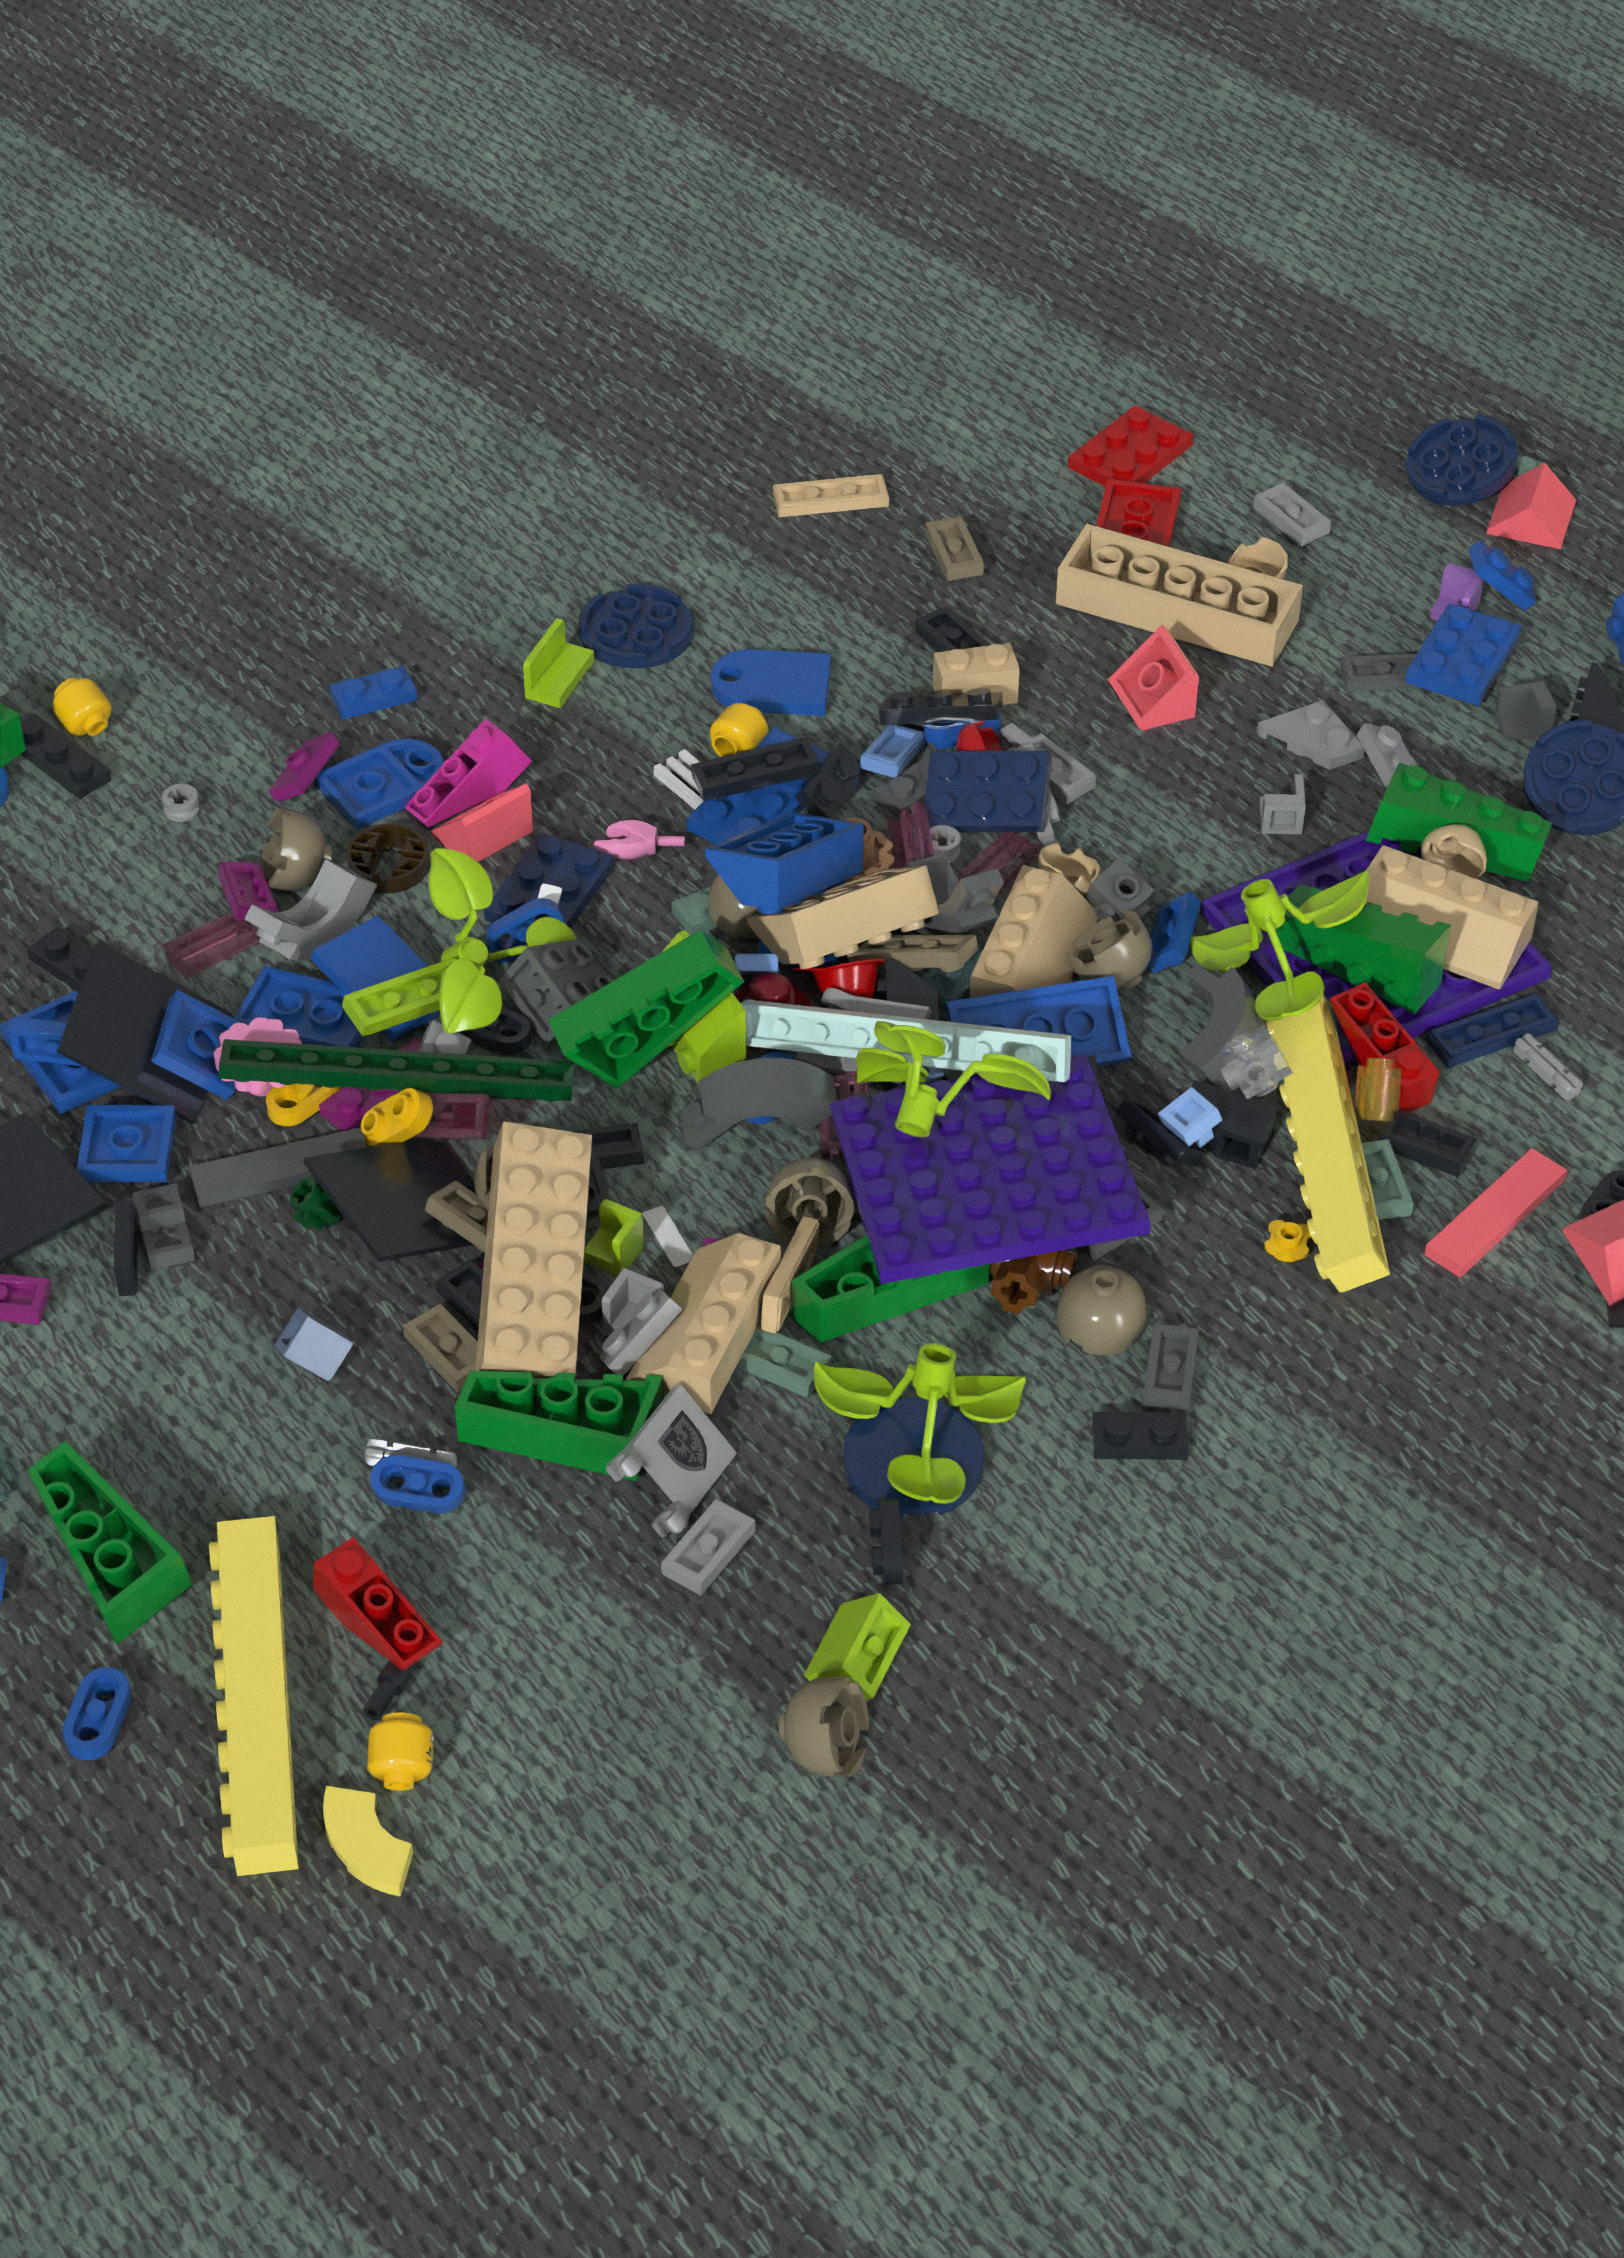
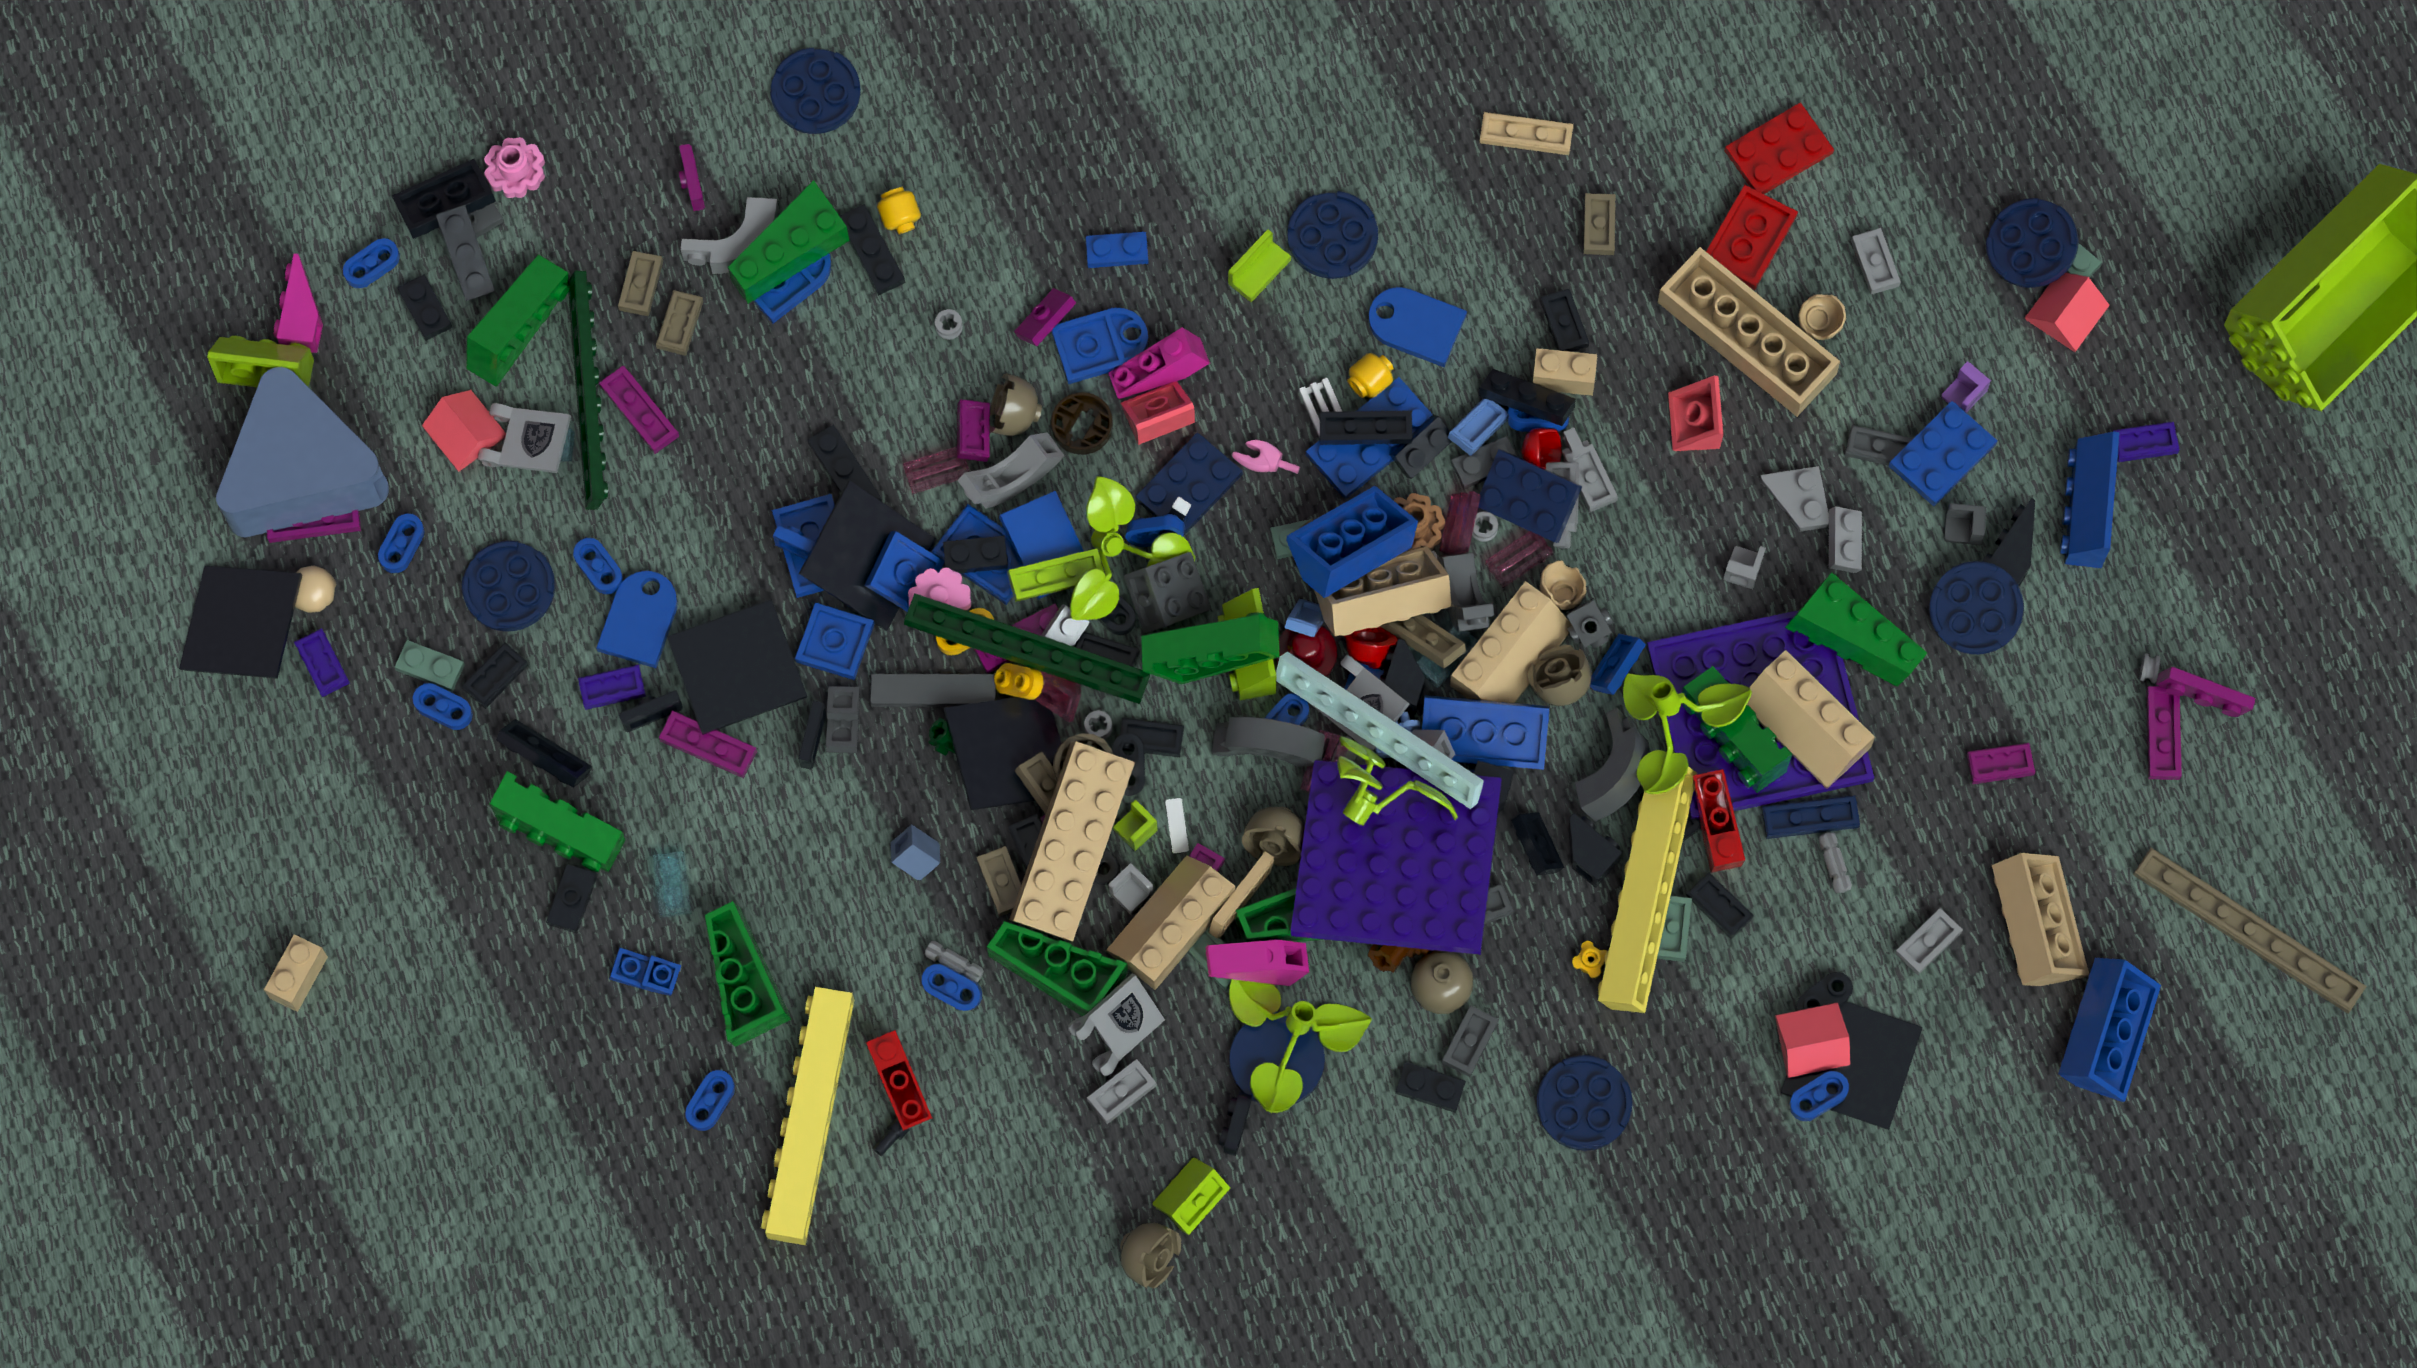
camera: 20 degrees right, 25 degrees up
(296, 1005) = (976, 554): none -> black plate
(362, 1842) = (846, 1239): light yellow tile -> none
(400, 1751) = (886, 1187): yellow head -> none
(650, 1319) = (1127, 915): light grey plate -> none
(854, 1332) = (1259, 961): none -> dark pink slope
(1191, 1118) = (1557, 846): light blue tile -> none
(1254, 1063) = (1616, 819): clear brick -> none
(1356, 1402) = (1584, 1103): none -> dark blue tile
(1378, 1089) = (1694, 863): clear yellow brick -> none
(1456, 849) = (1840, 661): tan hair -> none
(1495, 1212) = (1743, 977): coral tile -> none
(1502, 575) = (2006, 383): blue plate -> none

